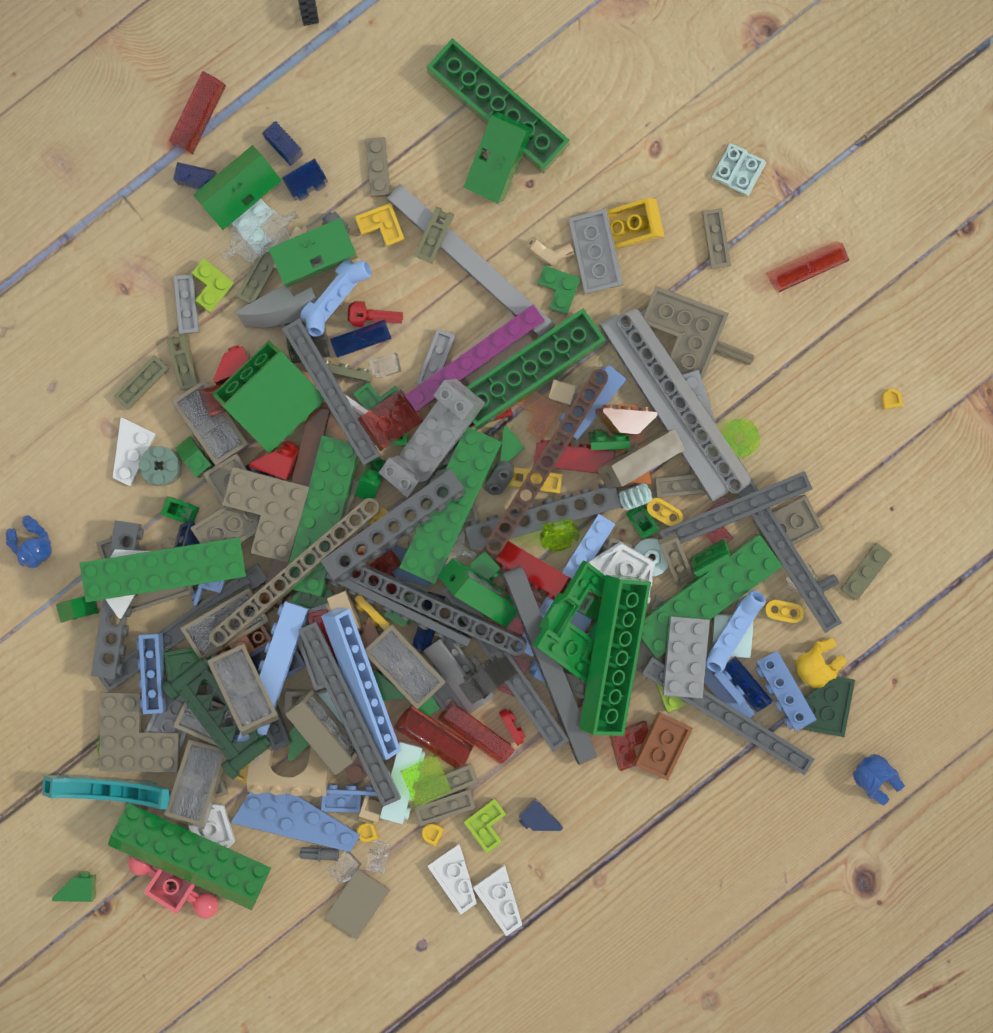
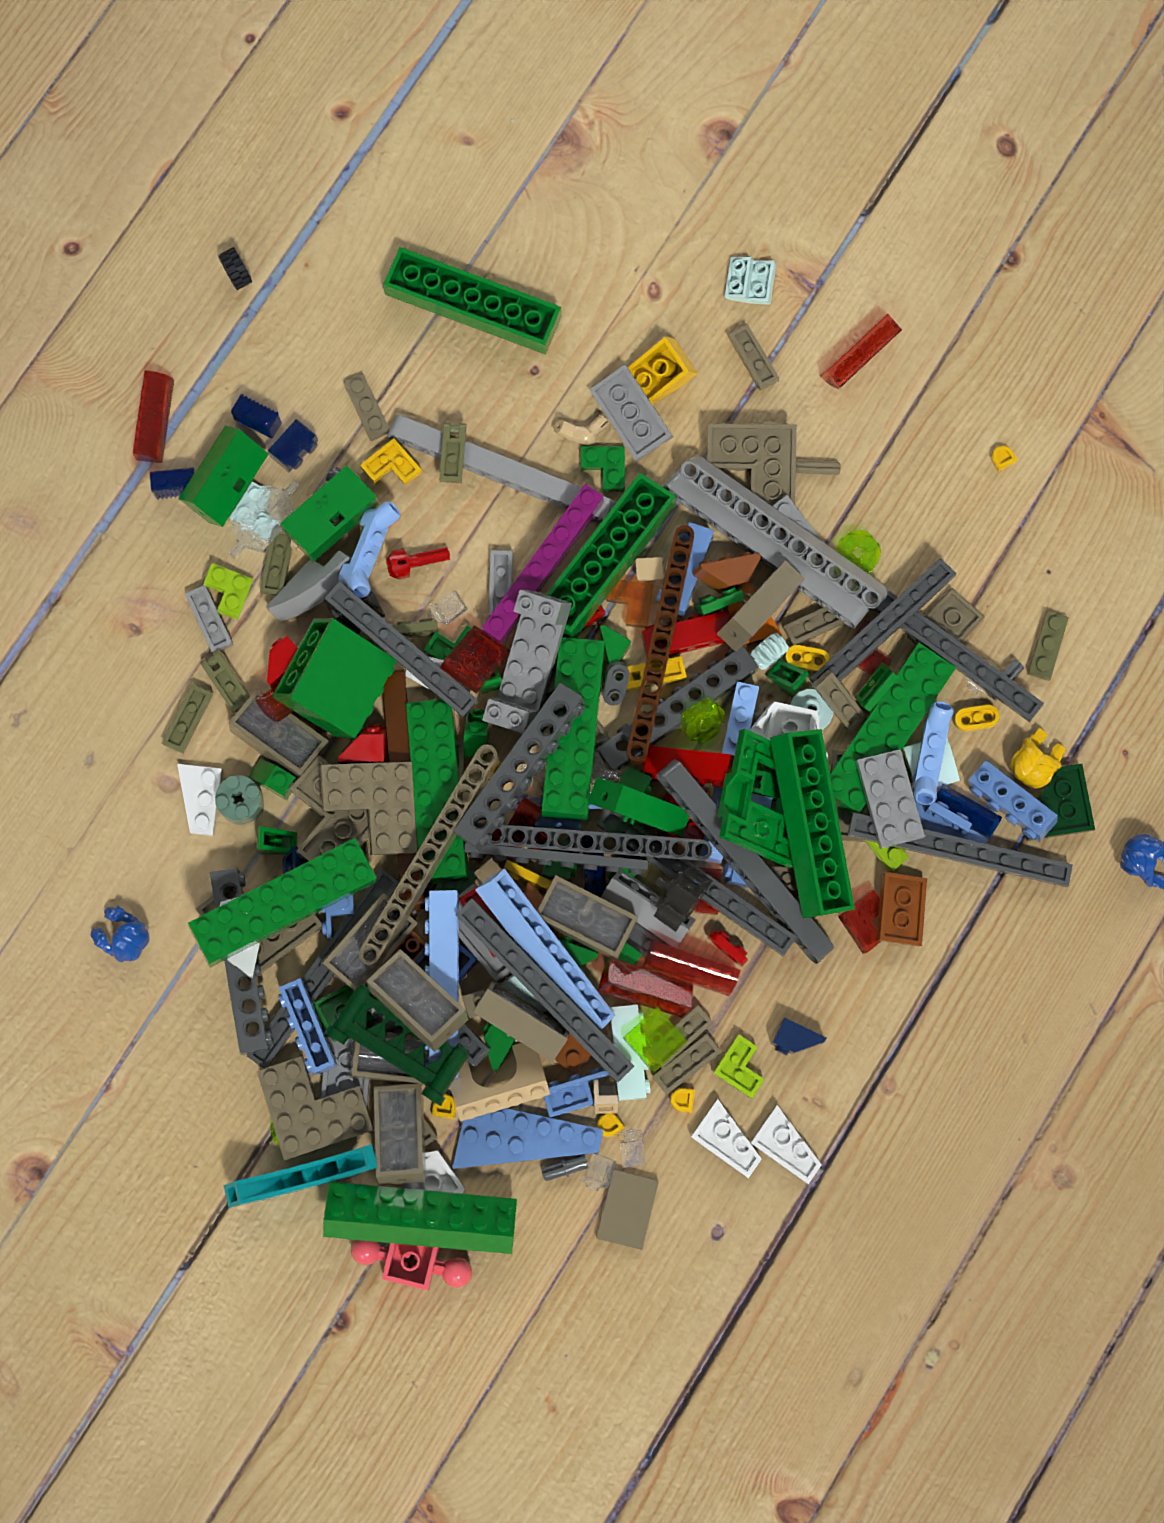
camera: 20 degrees left, 10 degrees down
(76, 609) = (197, 990): green slope -> none
(79, 889) = (304, 1306): green slope -> none
(360, 338) = (411, 589): clear blue plate -> none
(497, 157) = (492, 350): green brick -> none

